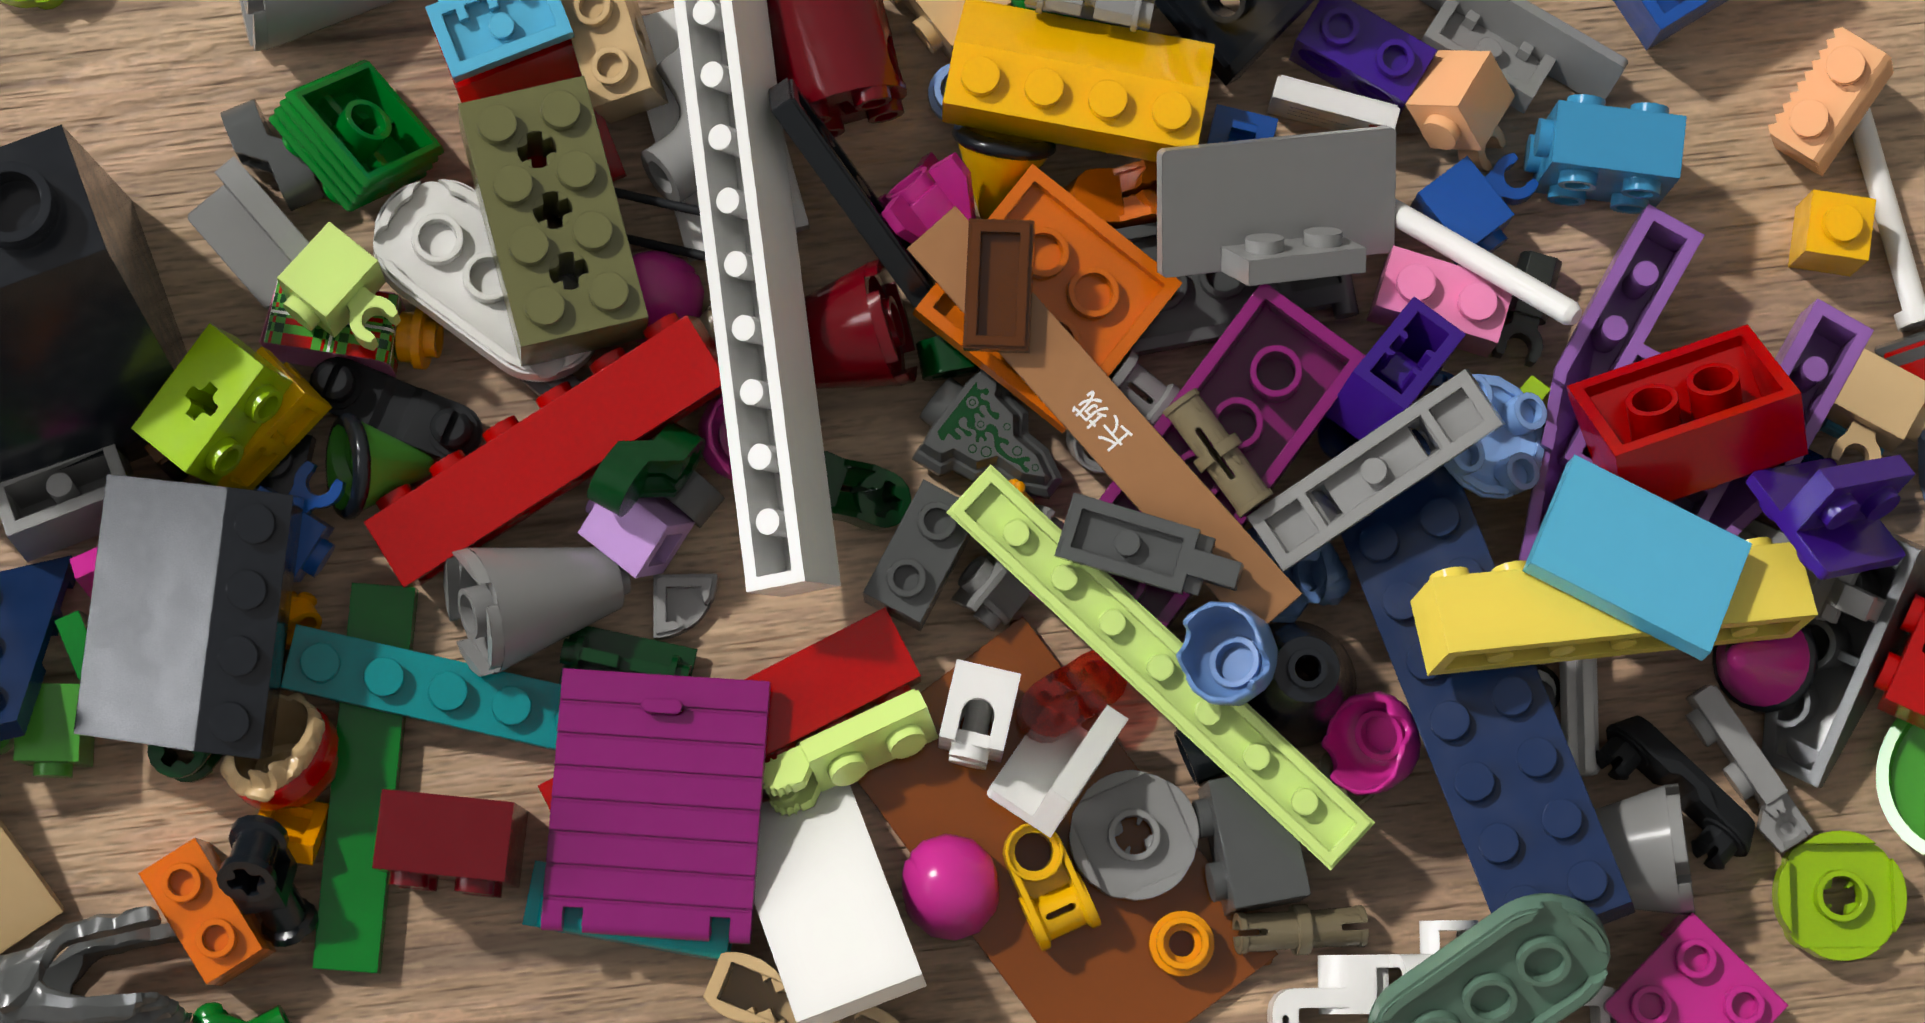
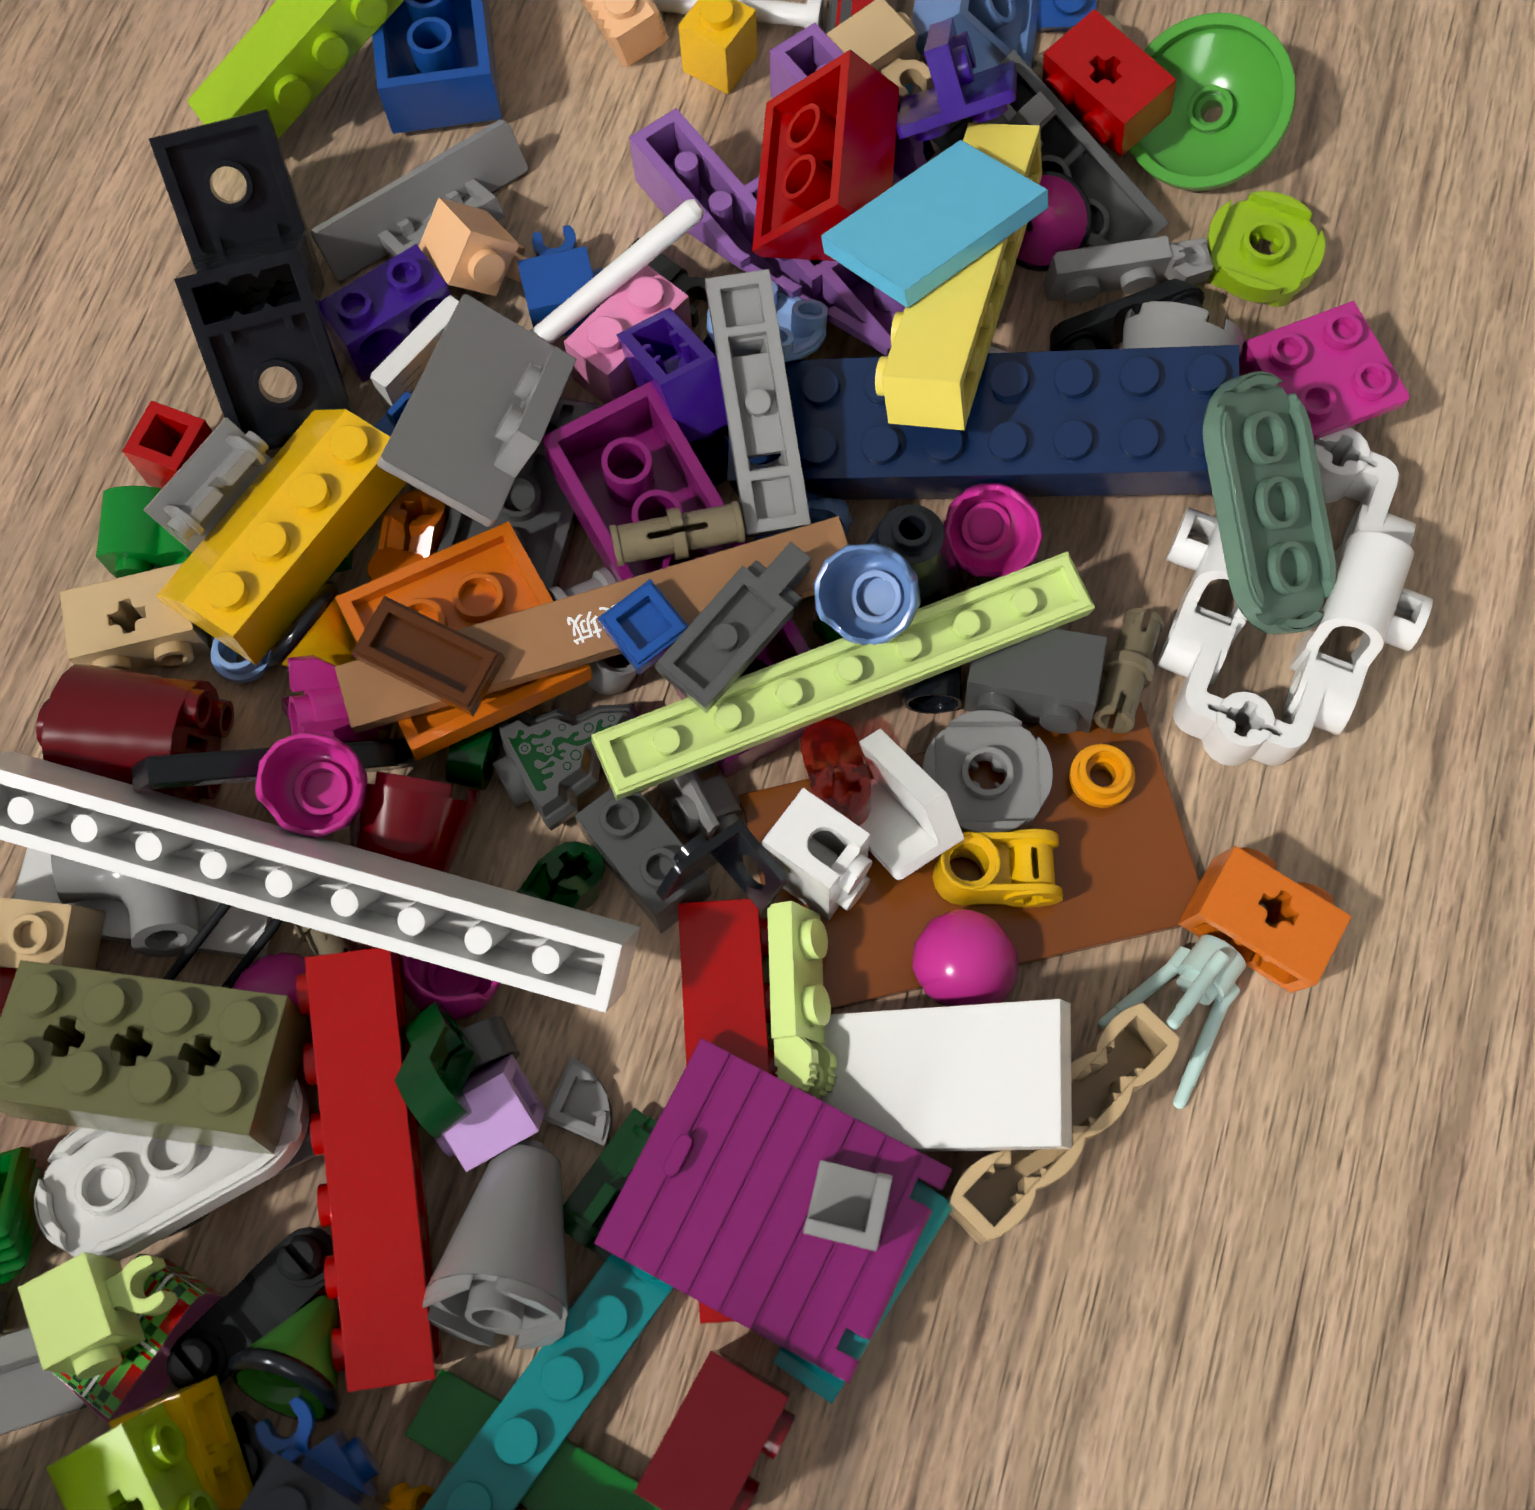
camera: 60 degrees left, 10 degrees down
(418, 339) = (196, 1254): light orange plate -> none
(676, 866) = (848, 1205): none -> light grey panel
(839, 243) = (311, 784): none -> dark pink hair
(948, 637) = (728, 850): none -> black bracket
(1112, 465) = (643, 626): none -> blue tile
(1606, 153) = (571, 156): dark azure brick -> none

